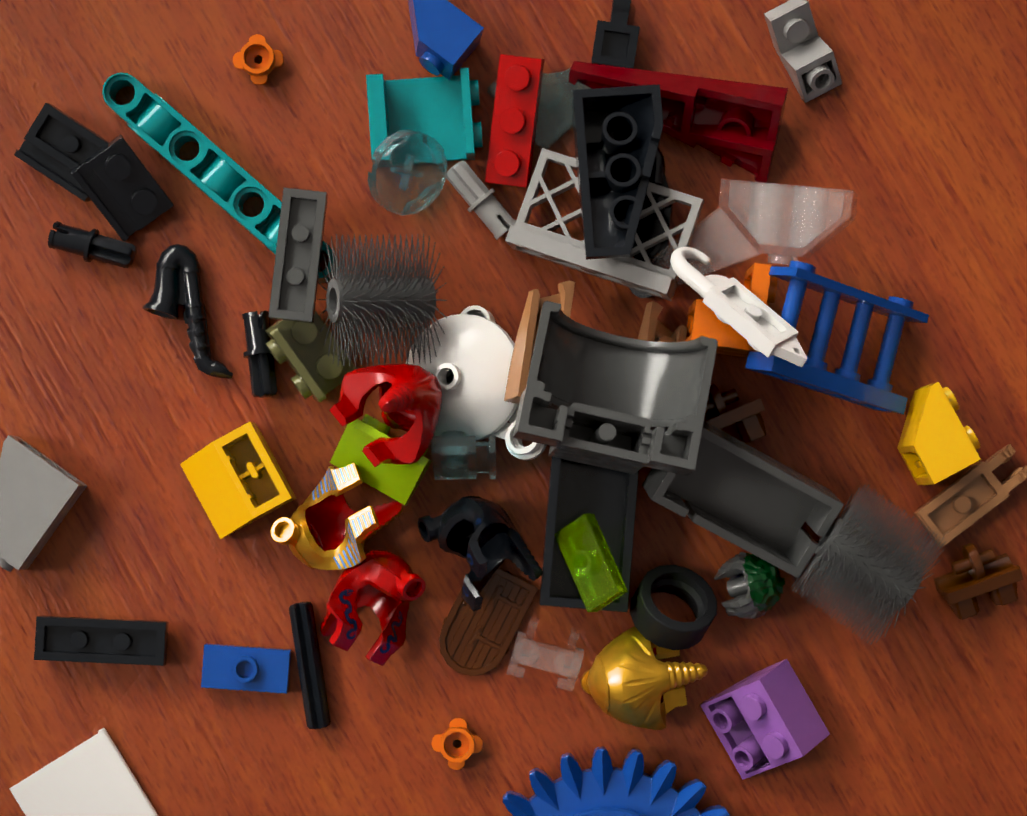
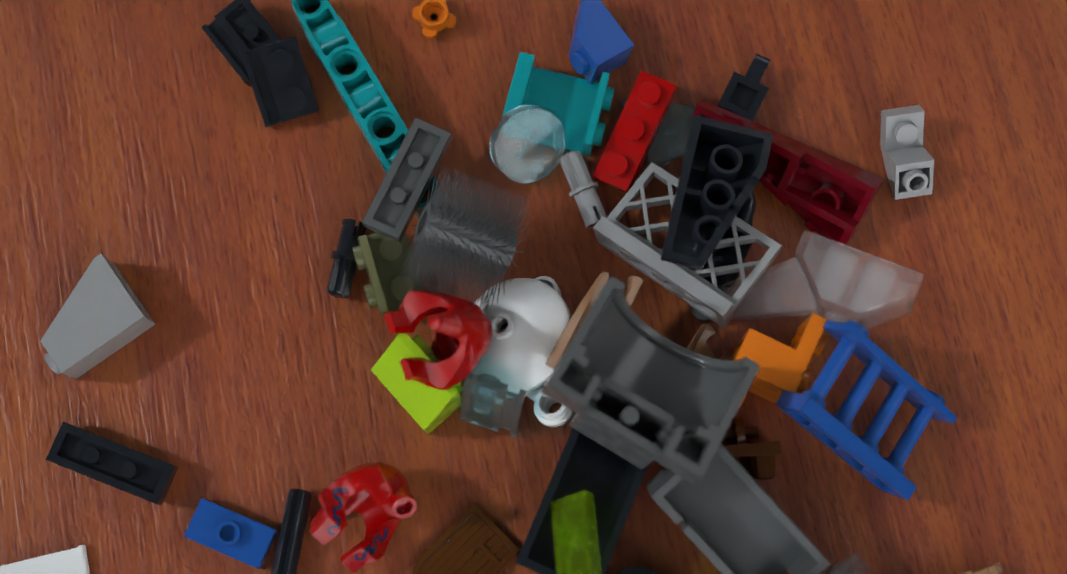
camera: 25 degrees right, 10 degrees down
(91, 245) = (237, 121): black axle -> none
(179, 284) = (297, 177): black piece -> none
(237, 479) = (286, 359): yellow slope -> none
(326, 530) = (347, 429): piece -> none
(482, 536) = (486, 485): black piece -> none
(740, 309) = (788, 347): white plate -> none
(934, 438) = (933, 530): yellow slope -> none

